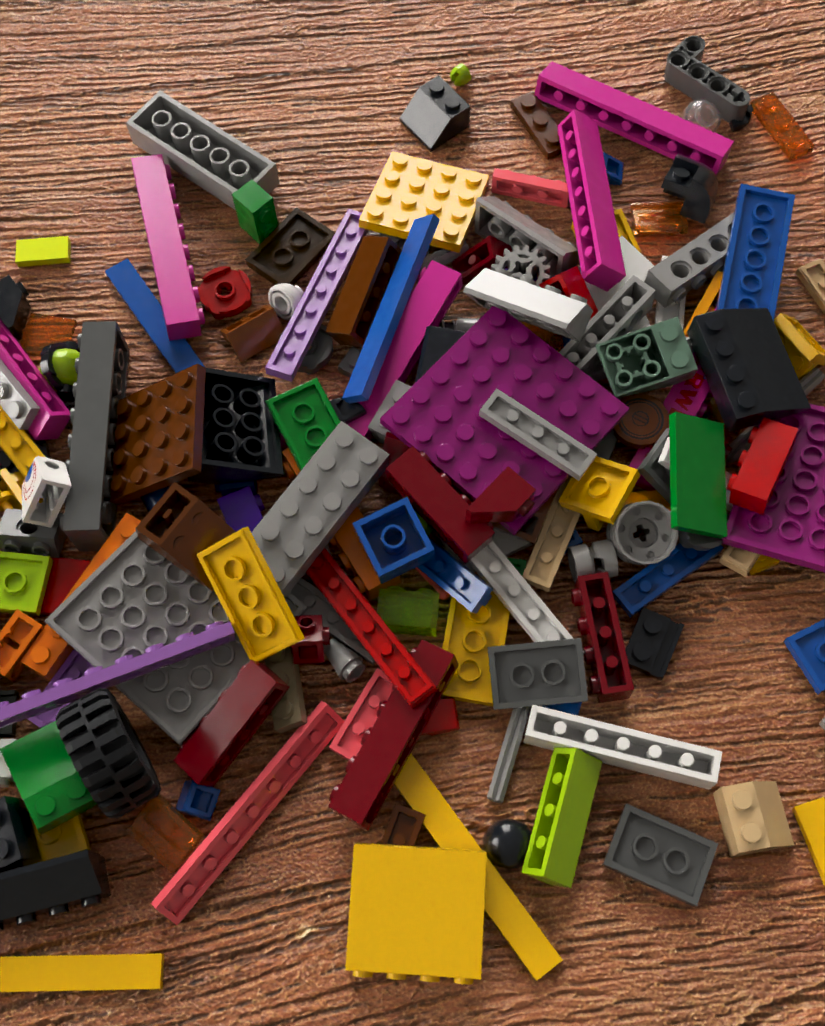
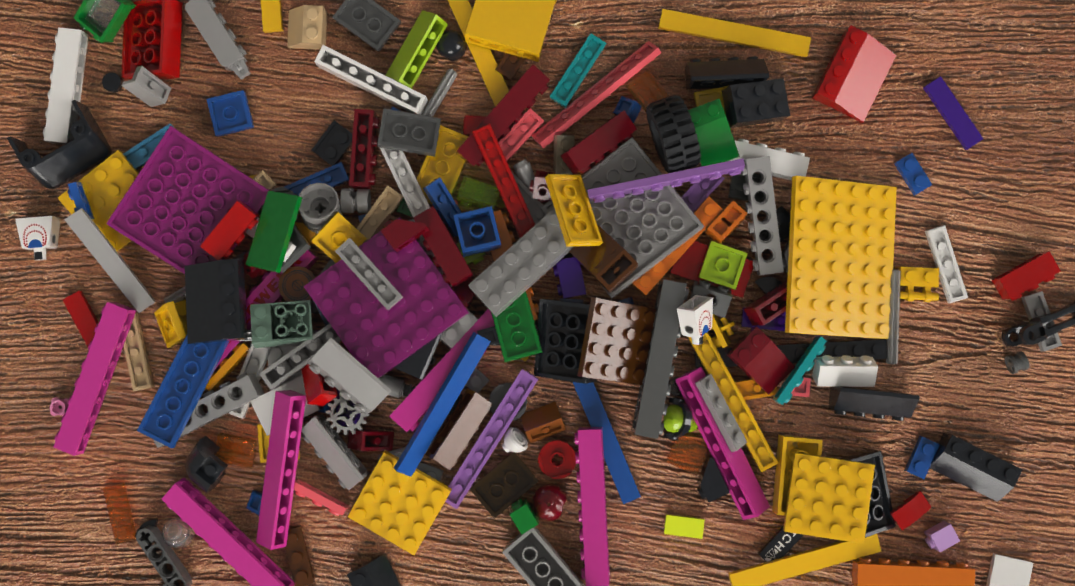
camera: 170 degrees left, 20 degrees up
(227, 242) = (553, 495): none -> dark red piece
(287, 846) = (578, 70): none -> teal plate

